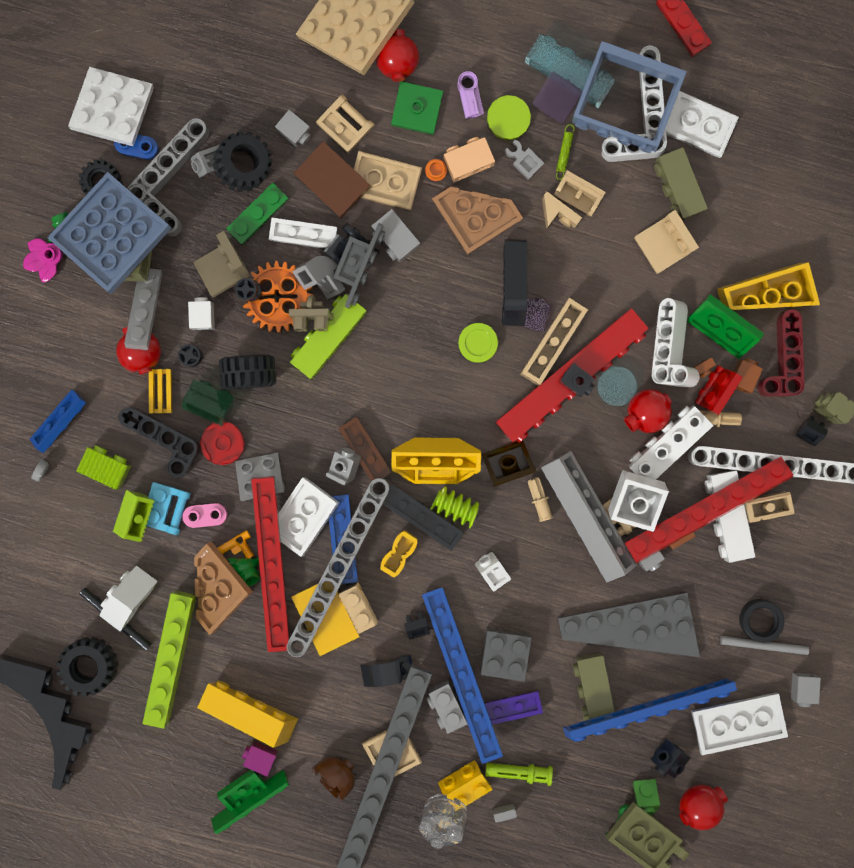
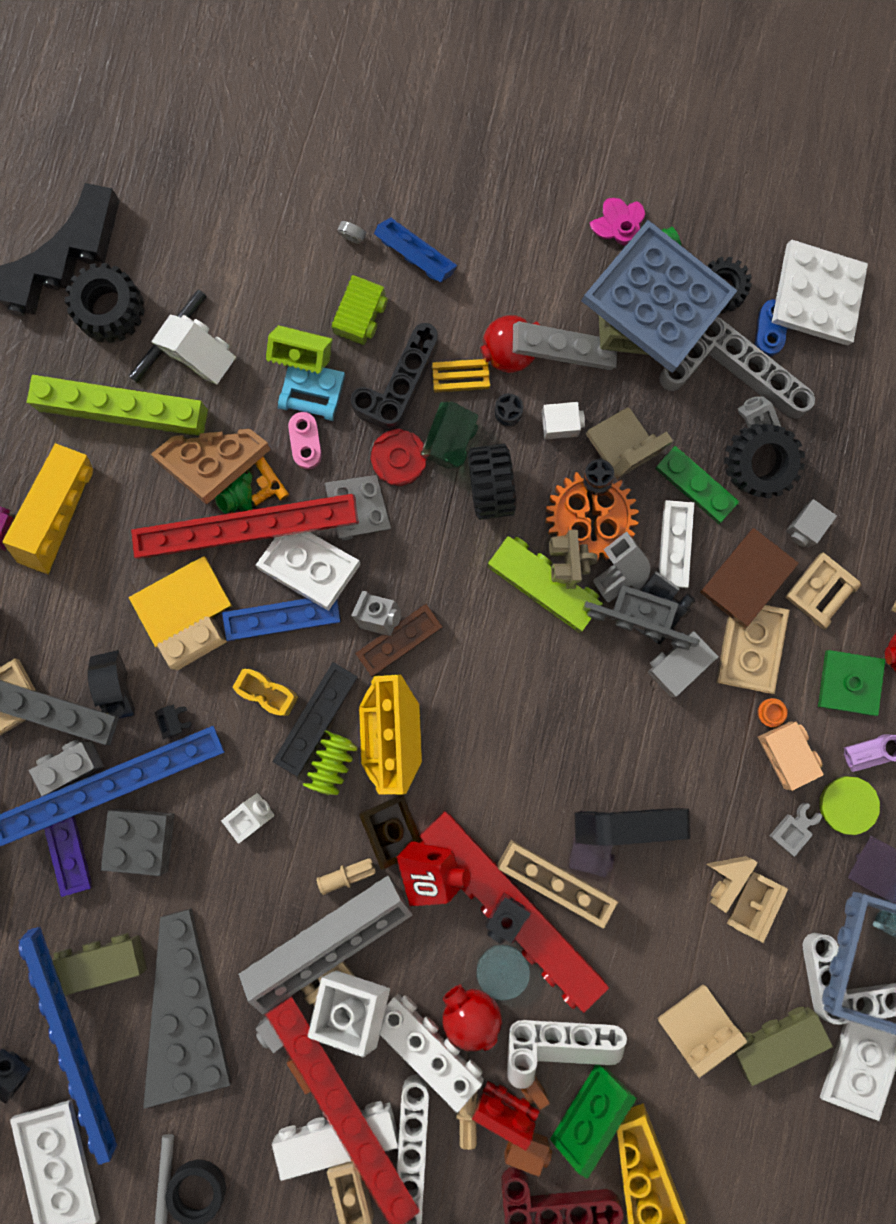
camera: 85 degrees right, 5 degrees down
(331, 575) = (233, 604): light grey beam -> none
(475, 216) = (716, 769): medium nougat plate -> none
(478, 342) = (549, 781): lime piece -> none
(541, 435) = (430, 874): none -> red torso
(565, 151) = (810, 883): lime piece -> none

